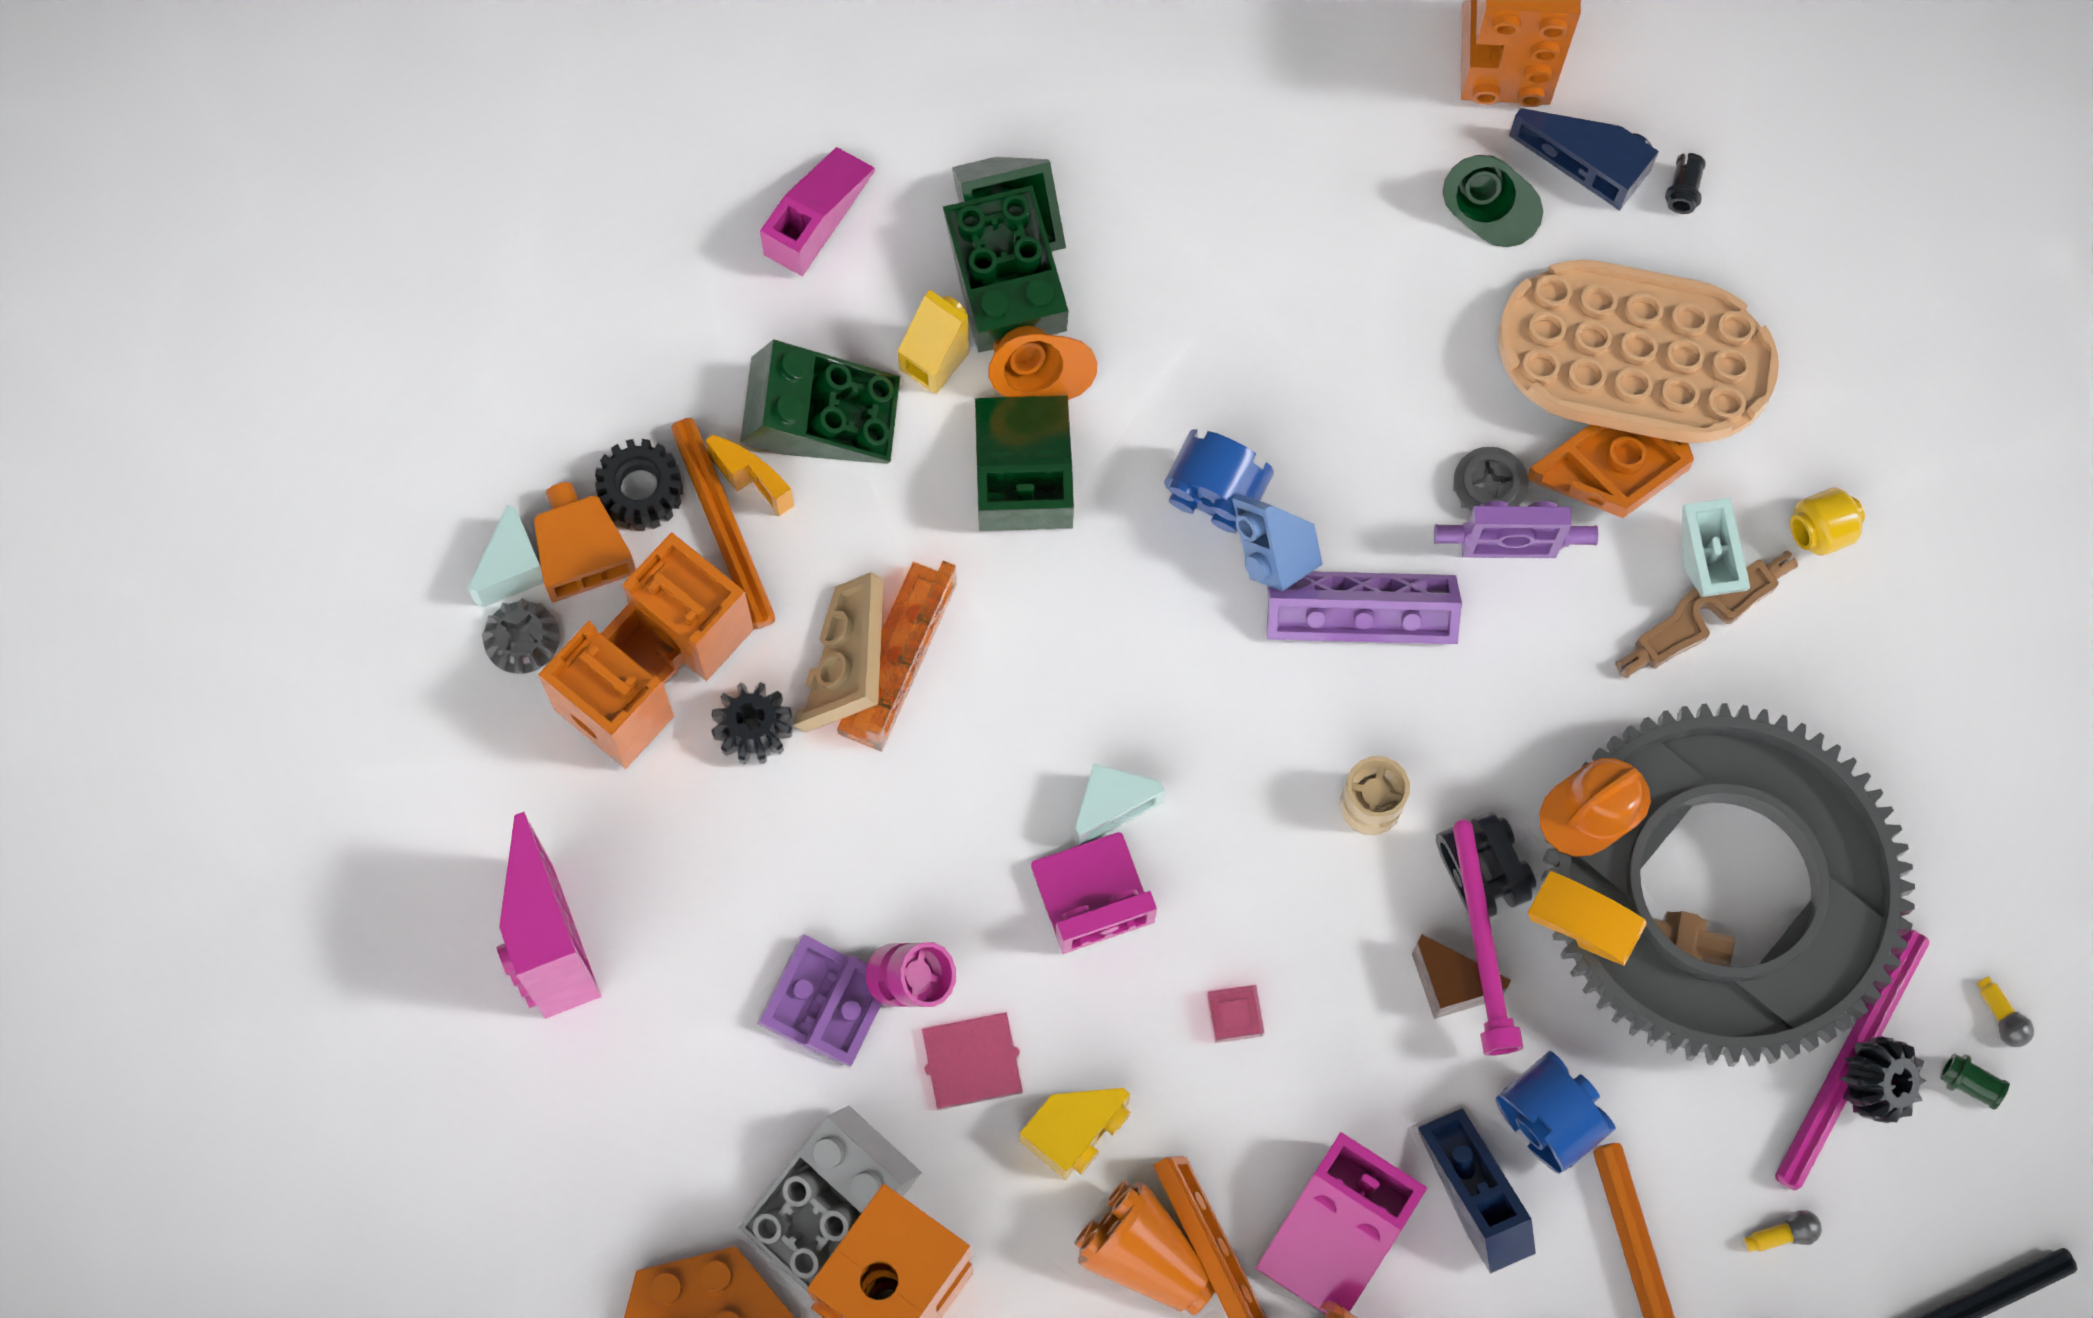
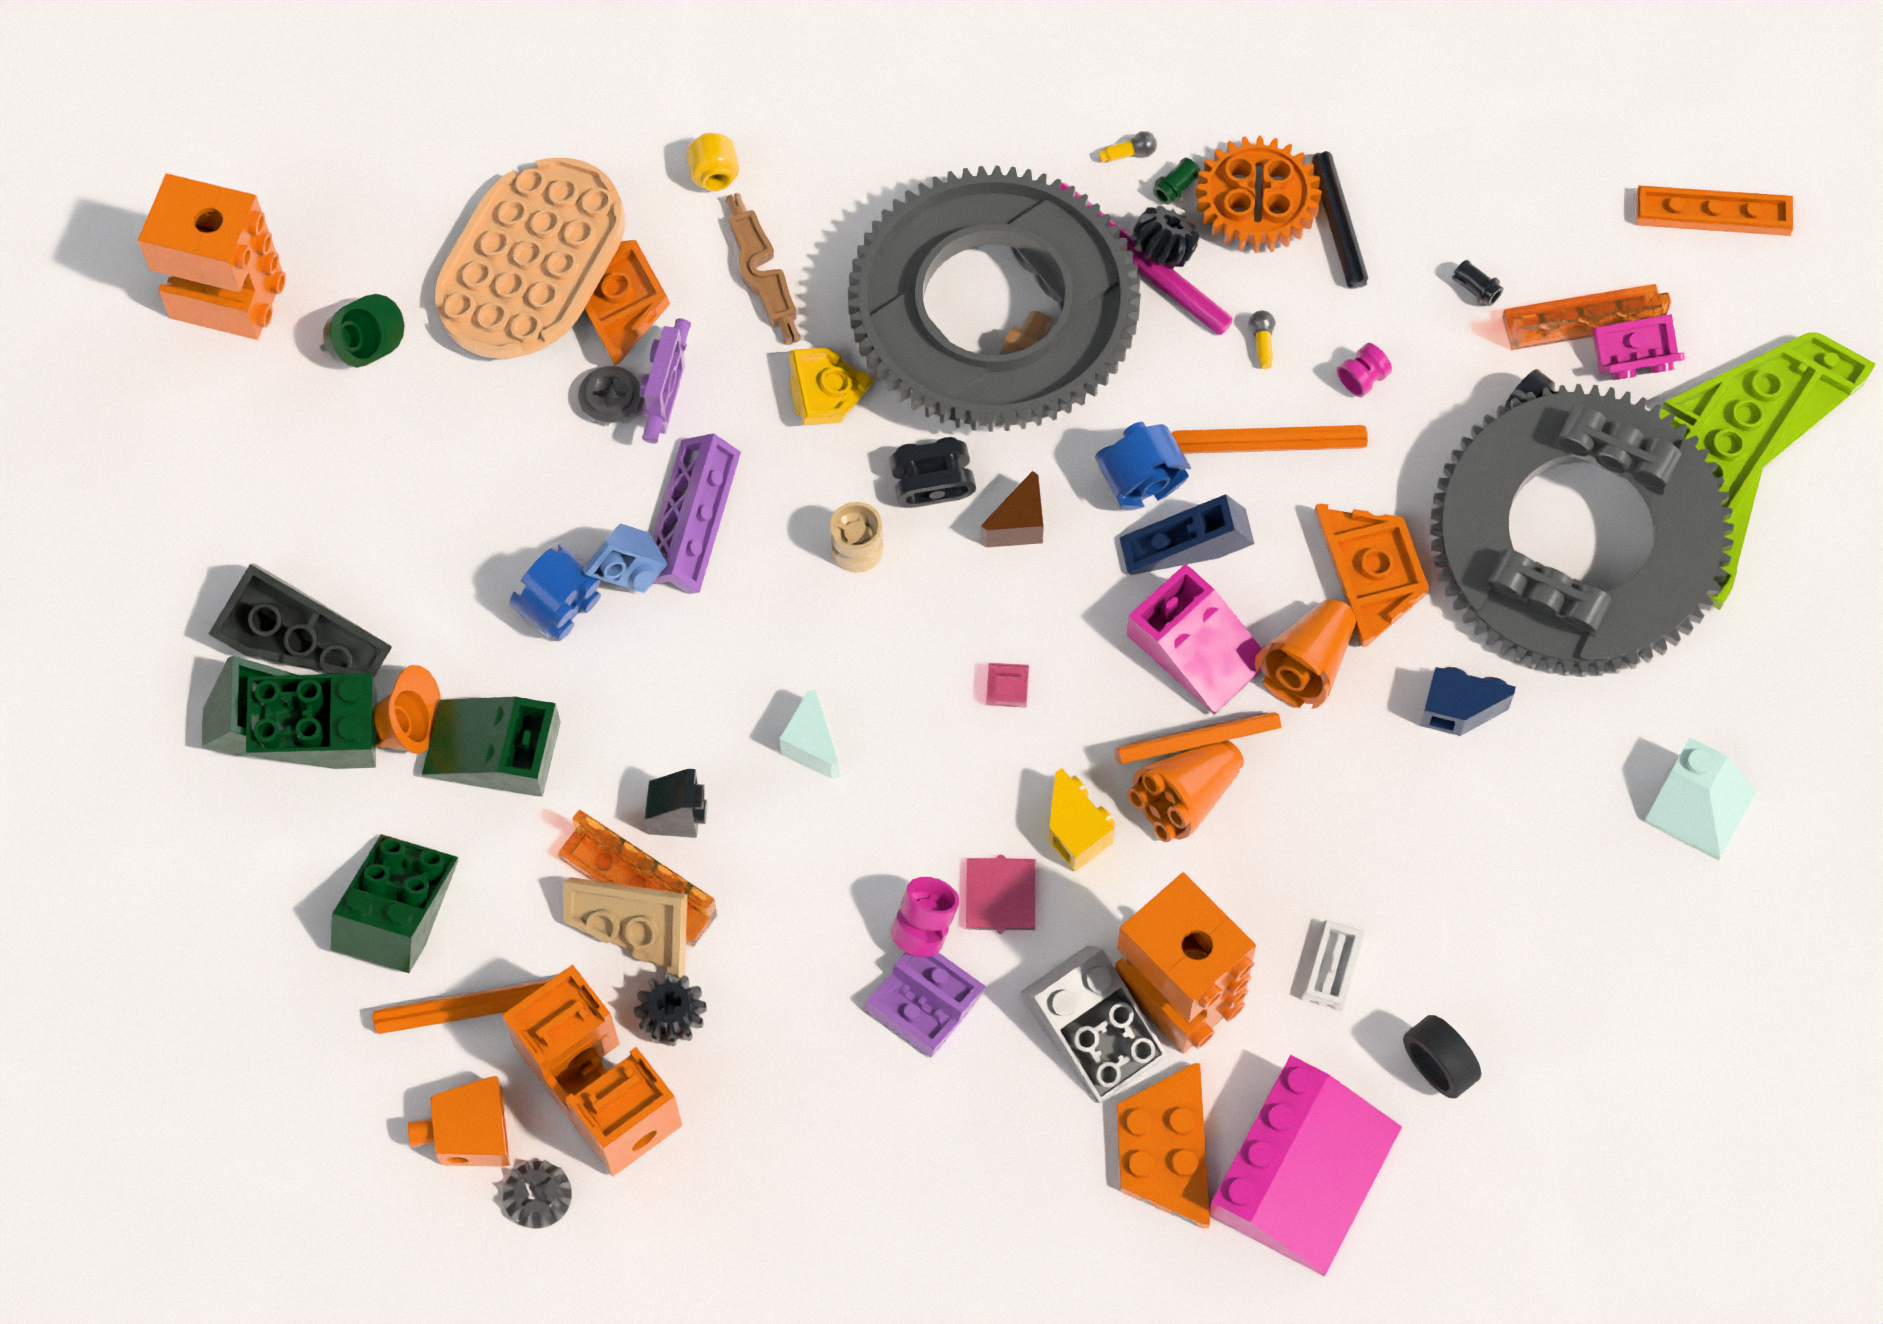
camera: 75 degrees left, 5 degrees down
(507, 563) = (465, 1186): light aqua slope -> none
(538, 930) = (821, 1188): dark pink slope -> none
(636, 458) = (418, 1042): black tyre -> none
(744, 467) = (428, 978): light orange slope -> none
(813, 210) = (206, 868): dark pink slope -> none
(935, 341) = (366, 789): yellow slope -> none
(990, 672) = (676, 805): none -> black slope
(1093, 892) = (884, 768): dark pink bracket -> none
(1117, 213) = (288, 626): none -> pearl dark grey wedge
(1500, 1033) = (1072, 485): dark pink piece -> none
(1566, 718) = (824, 385): none -> yellow plate
(1588, 917) = (1003, 394): light orange slope -> none
(1592, 153) = (345, 248): dark blue slope -> none
(1594, 807) = (914, 370): orange piece -> none
(1684, 192) = (398, 192): black pin -> none
(1713, 548) = (716, 245): light aqua slope -> none
(1997, 1230) = (1294, 195): none -> orange gear

